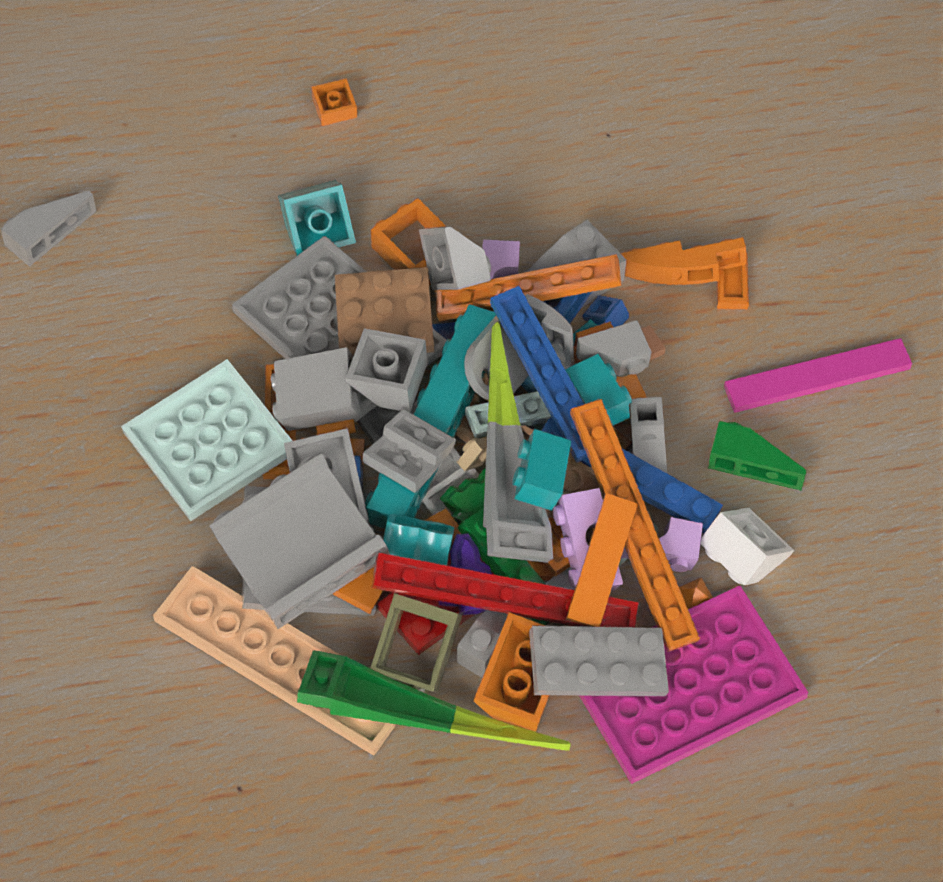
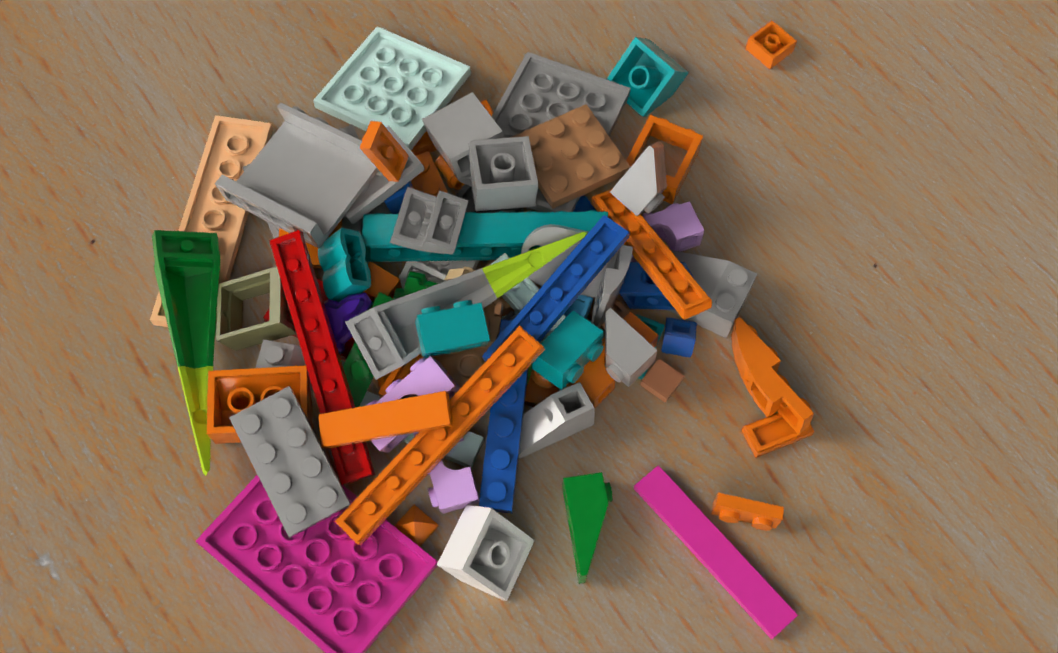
camera: 65 degrees right, 5 degrees up
(331, 447) = (384, 151): none -> orange plate
(792, 340) = (736, 509): none -> orange plate

